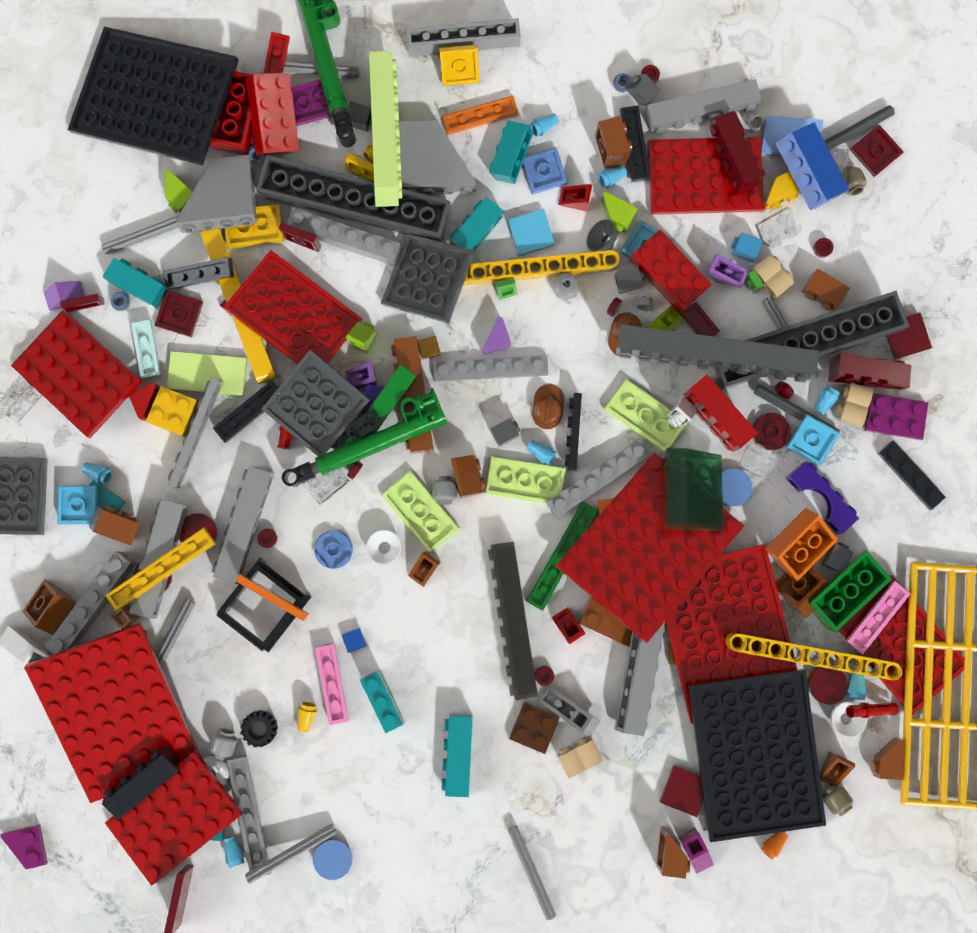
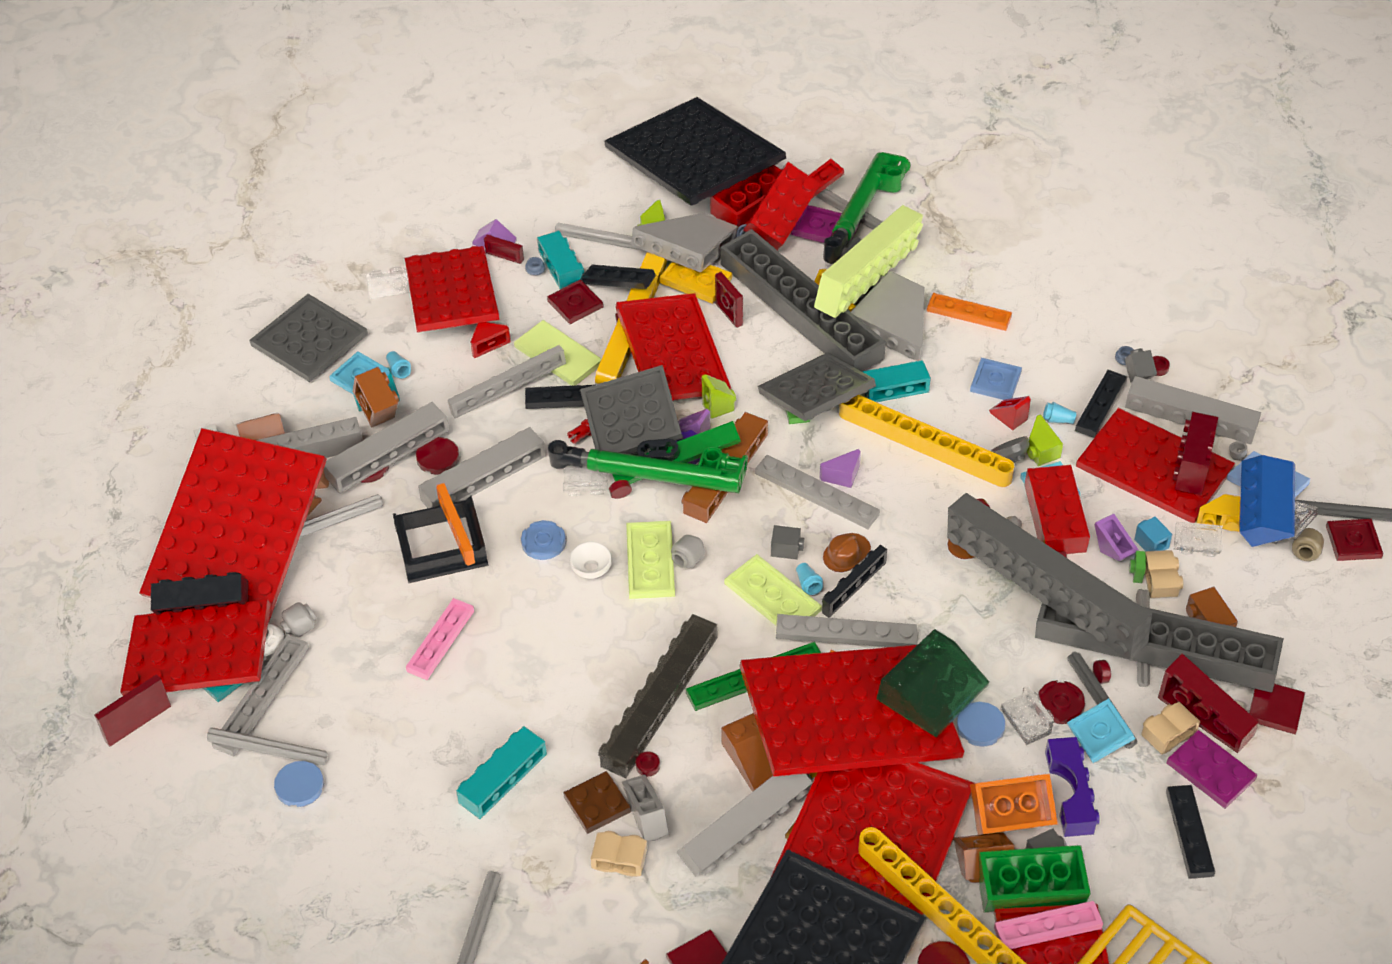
camera: 40 degrees right, 35 degrees down
(27, 846) = (53, 592): magenta wing -> none
(146, 349) = (524, 307): light aqua plate -> none
(160, 569) = (381, 447): yellow tile -> none
(172, 411) = (500, 353): yellow brick -> none
(233, 852) = (216, 714): medium azure cone -> none
(250, 737) = (343, 641): black tyre -> none
(267, 538) = (493, 496): dark red tile -> none
(306, 715) = (392, 648): yellow cone -> none
(346, 237) = (772, 326): light grey brick -> none
(354, 640) = (493, 619): blue tile -> none
(382, 701) = (472, 679): teal brick -> none
(424, 568) = (614, 600): dark orange slope -> none
(429, 347) = (773, 444): pearl gold tile -> none
(459, 65) = (979, 263): yellow bracket -> none
(467, 476) = (718, 550): dark orange slope -> none
(483, 34) = (999, 248): light grey brick -> none
(506, 288) = (884, 438): bright green plate -> none
(511, 152) = (974, 345): teal brick -> none
(531, 232) = (946, 413): medium azure tile -> none
(543, 124) = (1022, 345): medium azure cone -> none
(564, 292) = (942, 466): light grey head -> none
(568, 626) = (708, 737): red slope -> none
(613, 142) = (1079, 383): dark orange brick -> none
(629, 279) = (1010, 496): dark grey brick -> none
(643, 415) = (938, 608): yellowish green tile -> none
(681, 413) = (974, 614): white slope -> none
(720, 414) = (1014, 643): red brick -> none
(823, 247) = (1236, 584): dark red tile -> none
(826, 399) = (1142, 706): medium azure cone -> none

